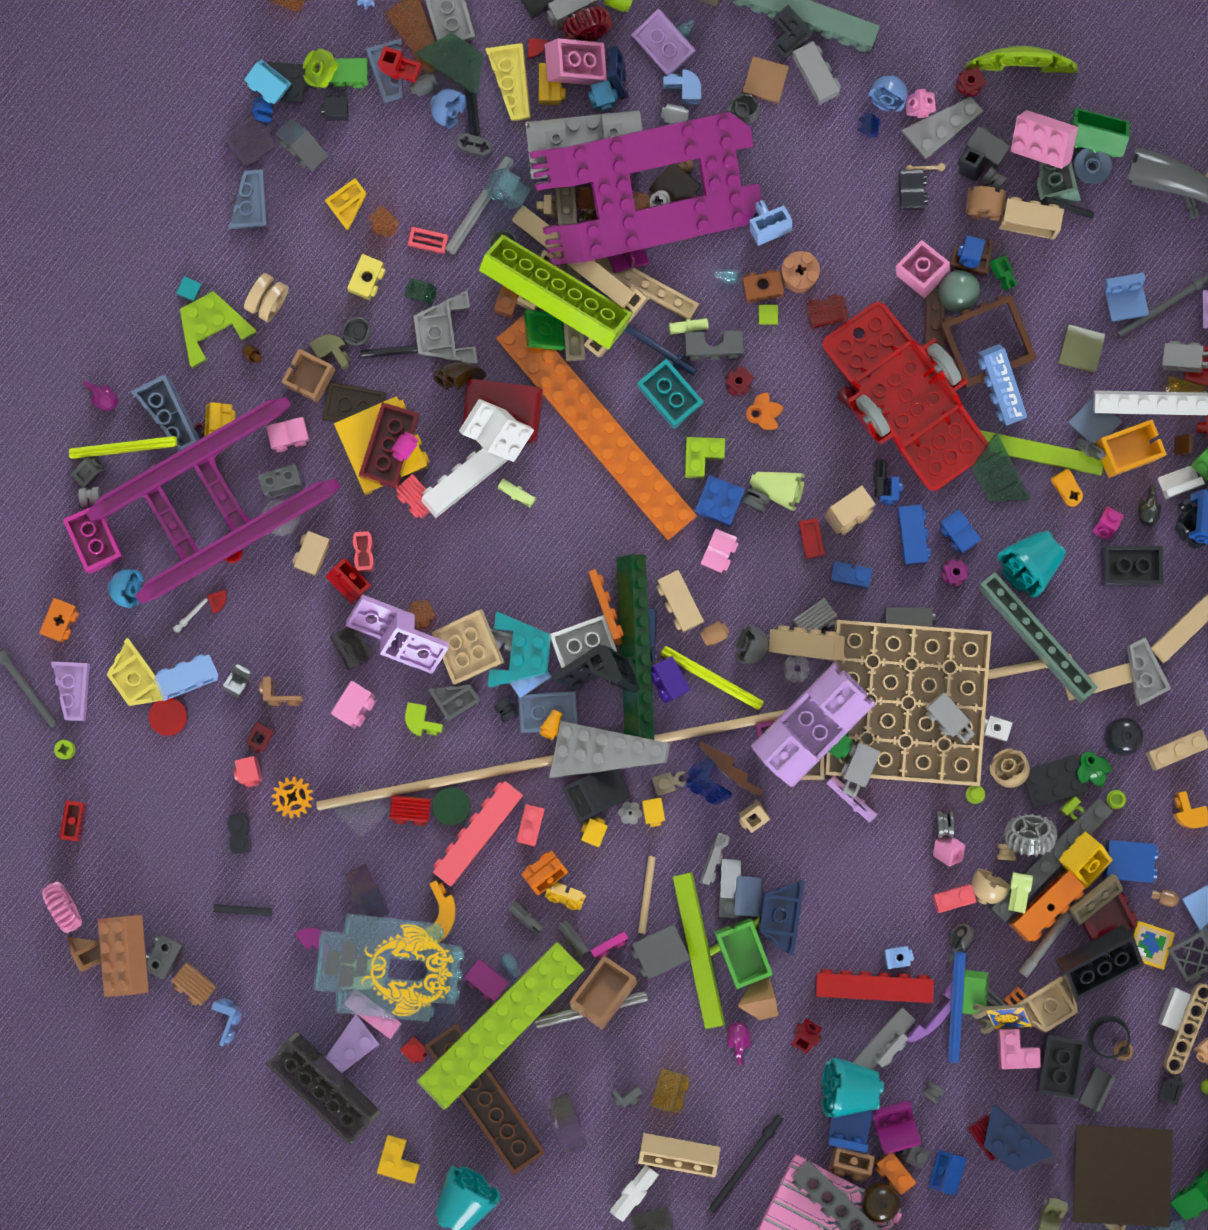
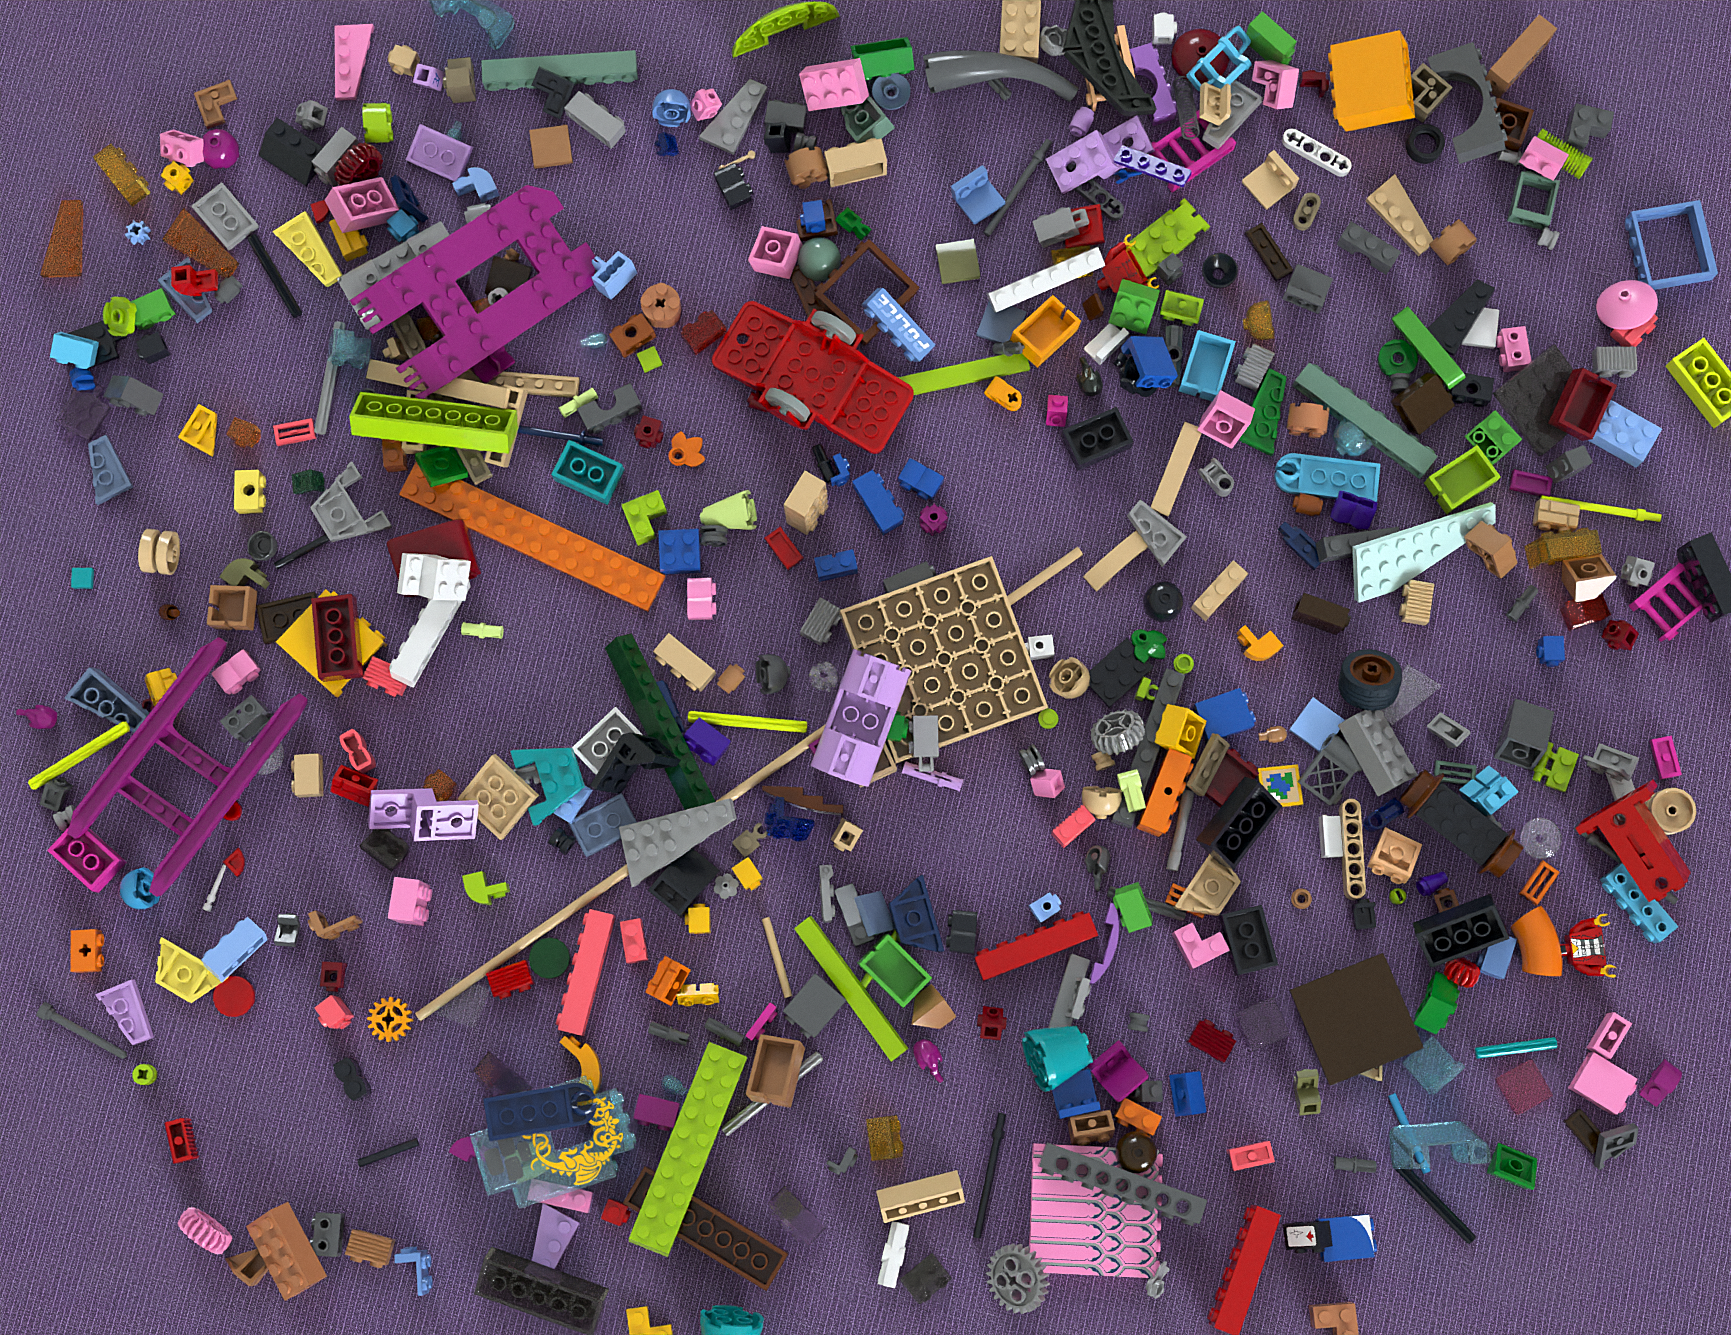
camera: 20 degrees left, 5 degrees down
(206, 318) = (111, 598): lime wing -> none
(388, 937) = (538, 1111): none -> dark blue plate
(404, 446) = (350, 630): dark pink brick -> none
(446, 107) = (258, 299): medium blue cylinder -> none
(454, 699) = (508, 853): dark grey wing -> none
(455, 60) = (247, 253): clear green wing -> none
(457, 374) = (374, 543): dark brown brick -> none
(475, 140) = (301, 329): dark grey beam -> none
(551, 725) = (611, 836): light orange cone -> none
(604, 599) = (609, 692): orange plate -> none
(745, 108) = (543, 178): dark grey hair -> none
(806, 644) = (822, 646): tan brick -> none
(816, 946) = (962, 932): none -> black brick
(949, 717) = (988, 654): light grey brick -> none
(956, 1007) = (1122, 928): blue axle -> none
(970, 82) = (743, 65): dark red brick -> none
(997, 474) = (932, 410): clear green wing -> none
(1002, 1017) = (1171, 917): flag -> none
(1012, 1142) = (1236, 1034): dark blue wing -> none
(1031, 562) = (1001, 477): teal cone -> none
(1037, 637) = (1039, 544): sand green brick -> none
(1069, 207) = (888, 137): black bar -> none
(1096, 1024) = (1267, 879): black tyre -> none
(1096, 1090) = (1293, 947): dark grey panel -> none

